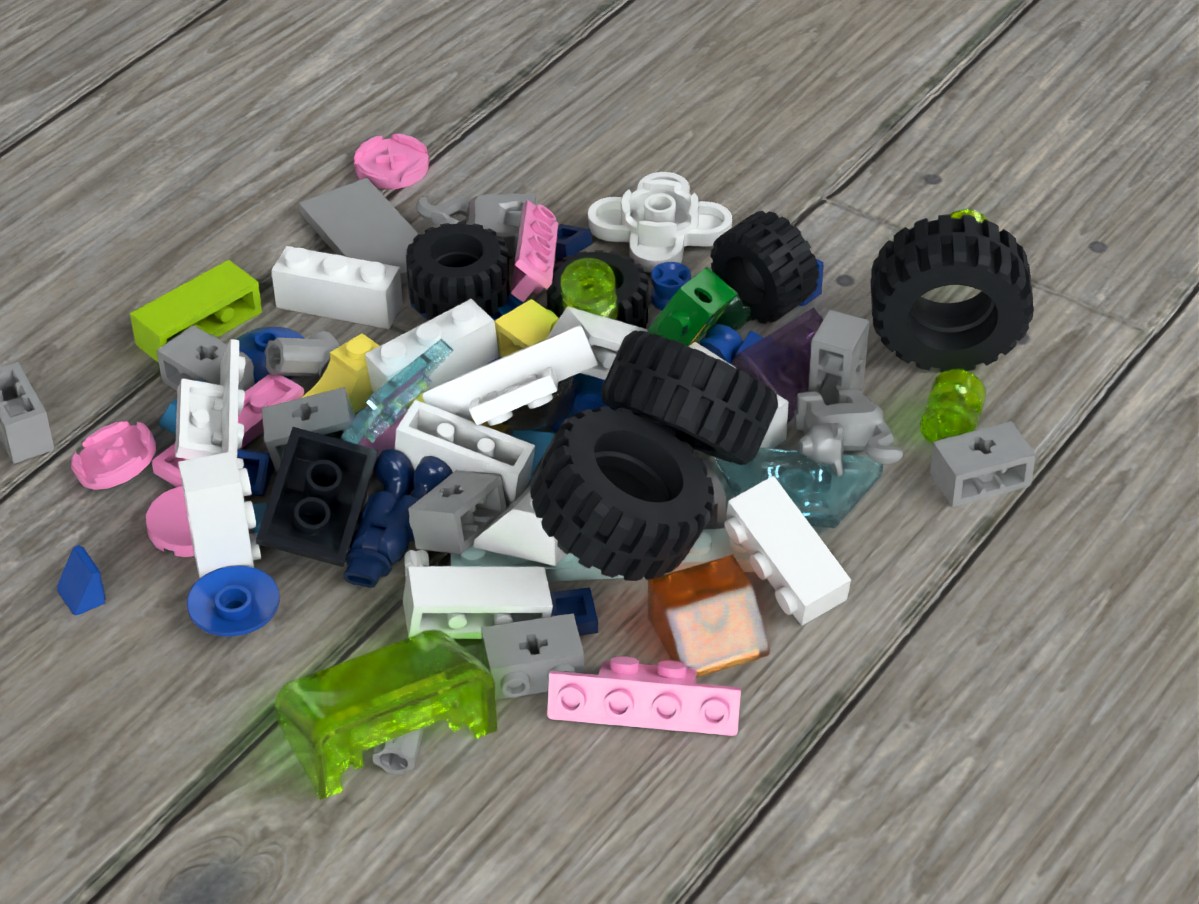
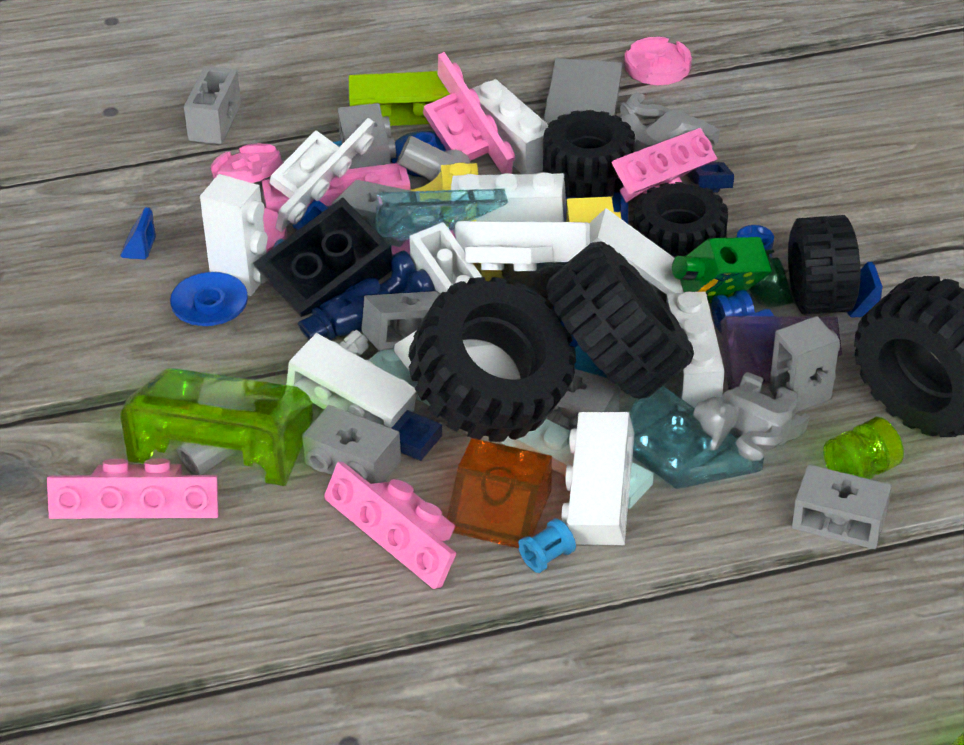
camera: 40 degrees right, 0 degrees up
(295, 301) = (462, 122): none -> bright pink bracket
(373, 819) = (133, 492): none -> bright pink bracket
(590, 287) = (646, 208): clear neon green wheel -> none
(658, 220) = (799, 191): white plant -> none
(794, 637) = (547, 545): none -> dark azure bush

